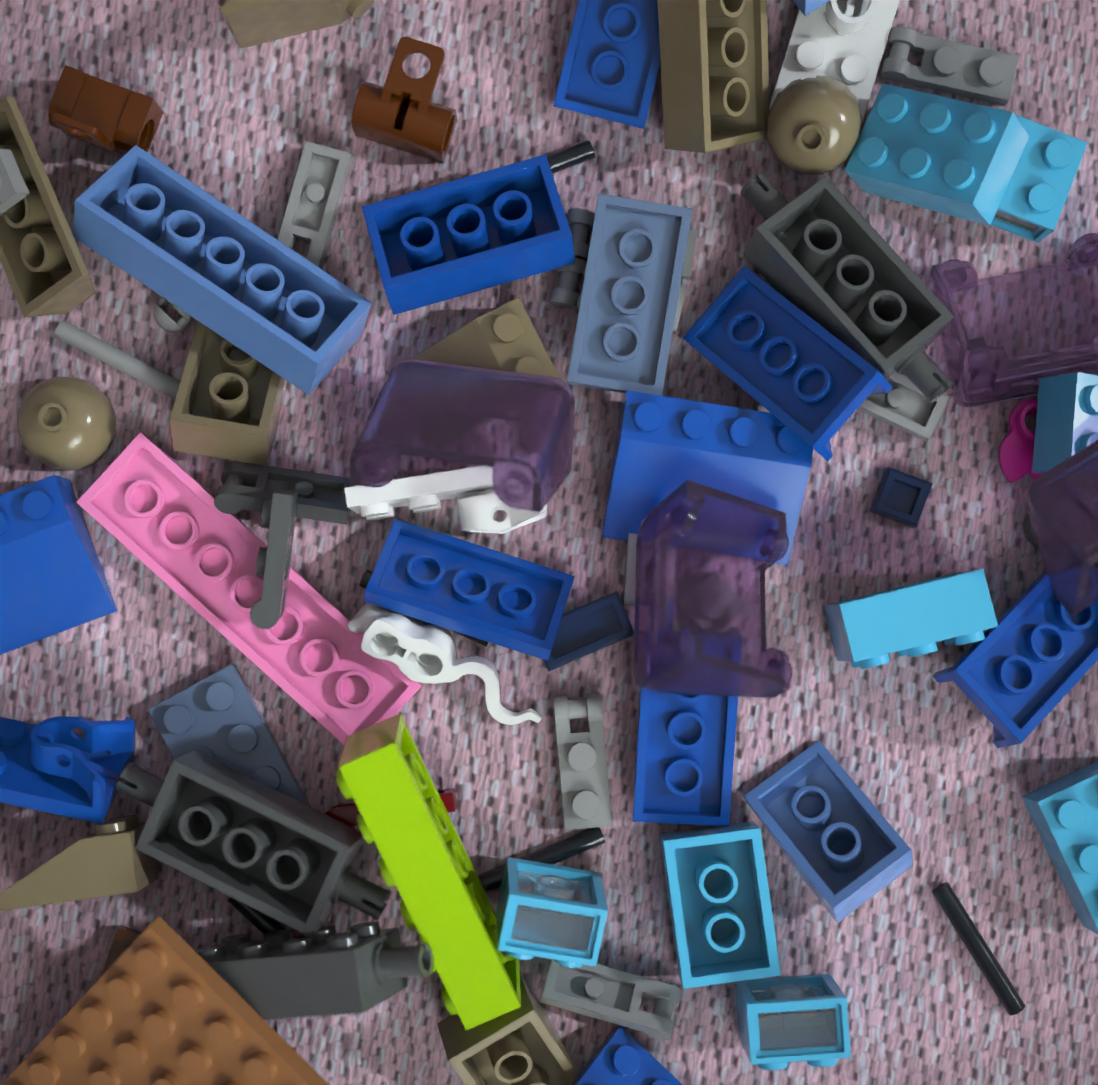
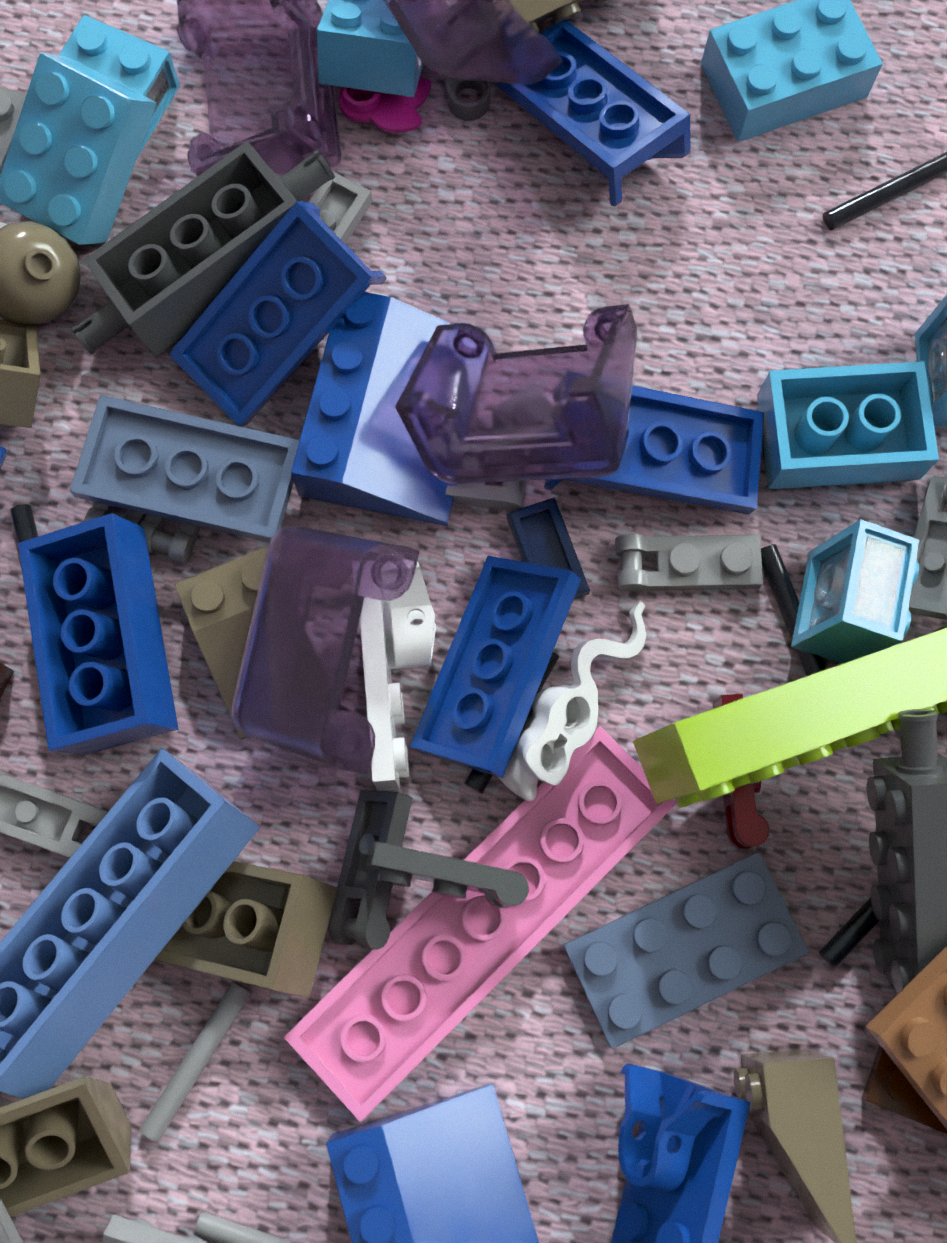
camera: 85 degrees left, 10 degrees down
(66, 423) = (264, 1132): dark tan cylinder -> none
(165, 321) = (153, 1001): light grey hinge -> none
(251, 842) = (774, 923): dark grey brick -> none
(829, 831) = (769, 316): medium blue slope -> none
(901, 497) = (428, 228): dark blue tile -> none
(911, 619) = (555, 215): medium azure brick -> none

